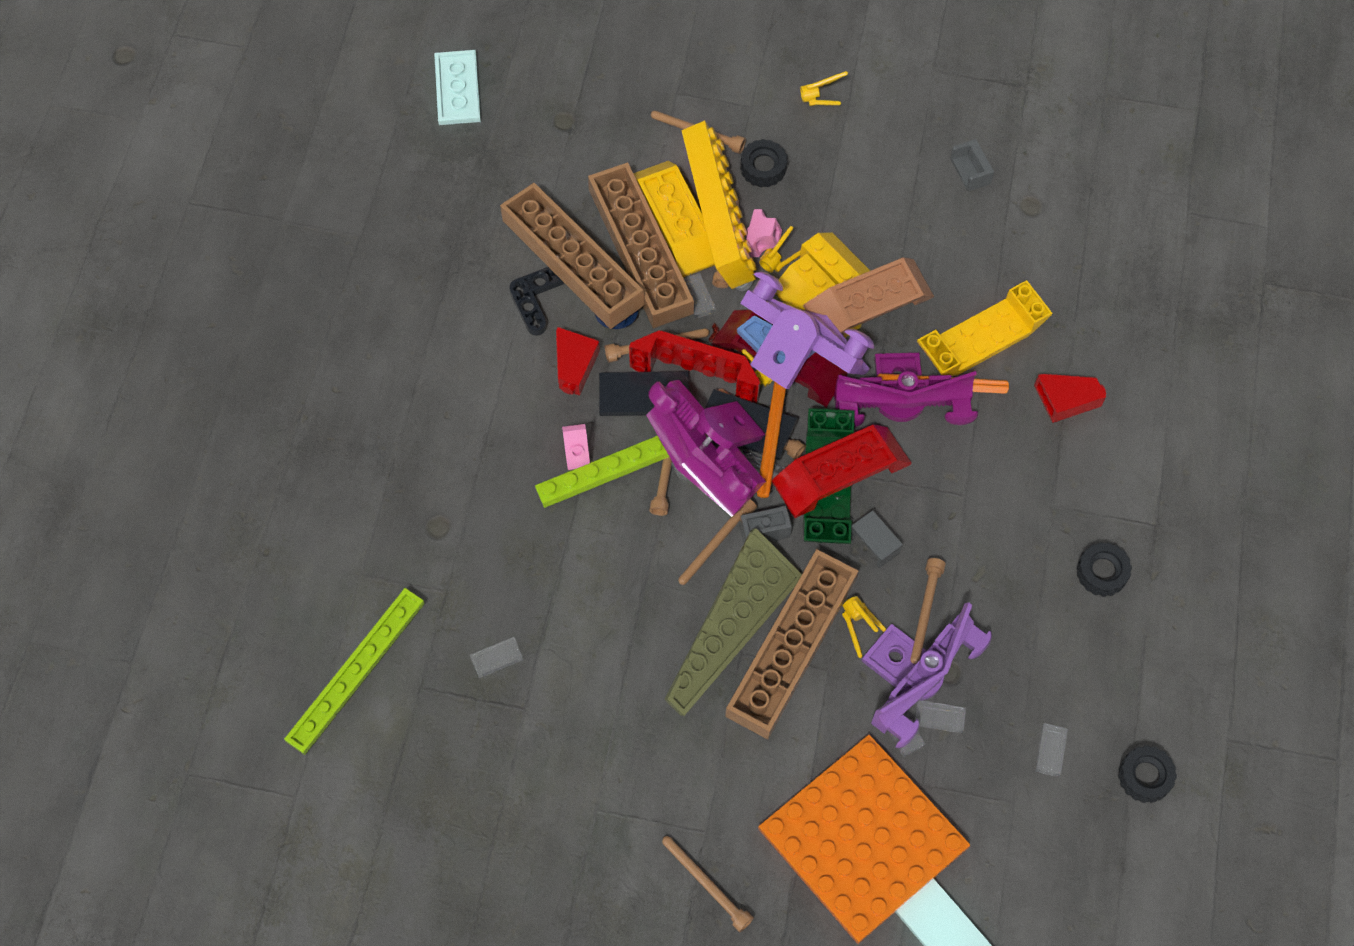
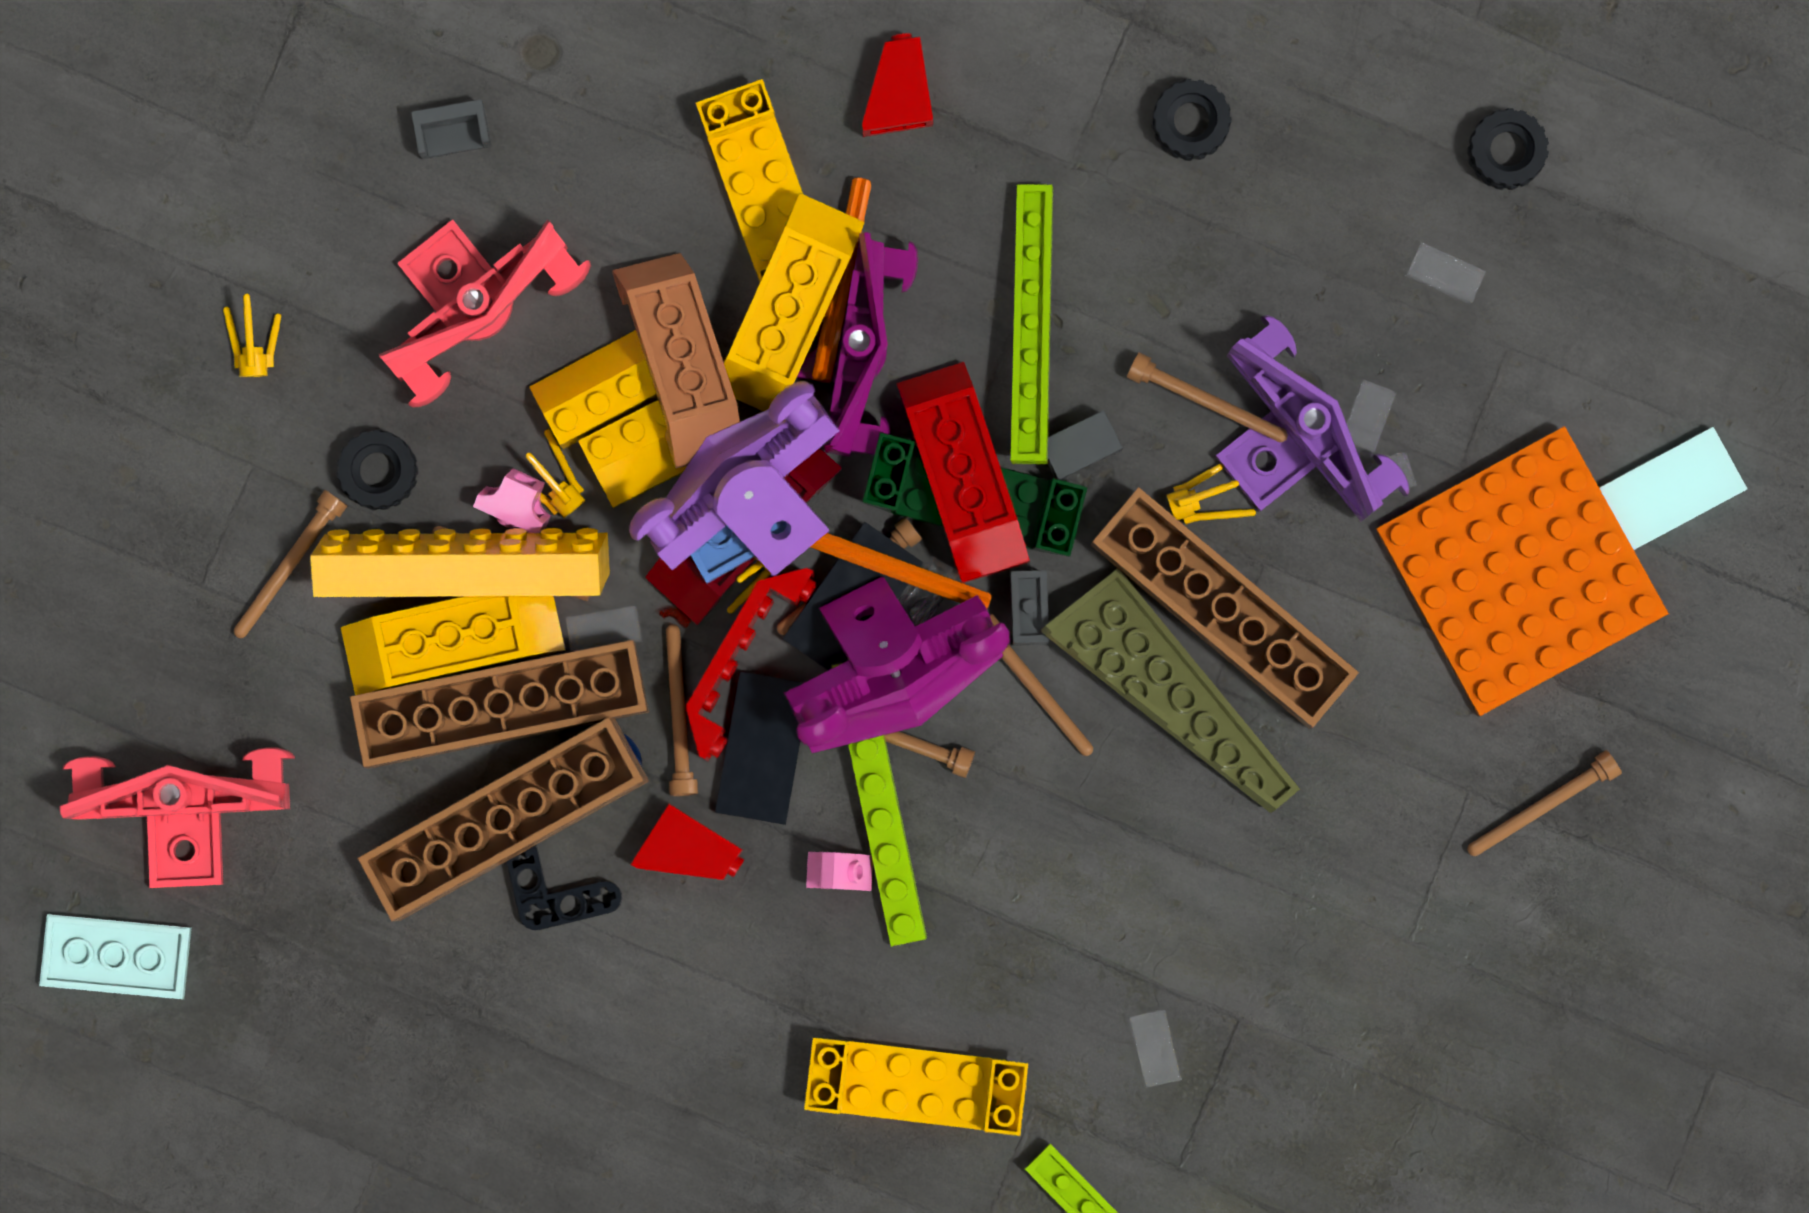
camera: 80 degrees left, 20 degrees up
(448, 510) = (916, 1085): none -> yellow slope
(548, 102) = (179, 808): none -> coral piece
(871, 193) = (472, 302): none -> coral piece
(925, 348) = (790, 301): none -> yellow slope
(945, 493) = (1032, 324): none -> lime plate

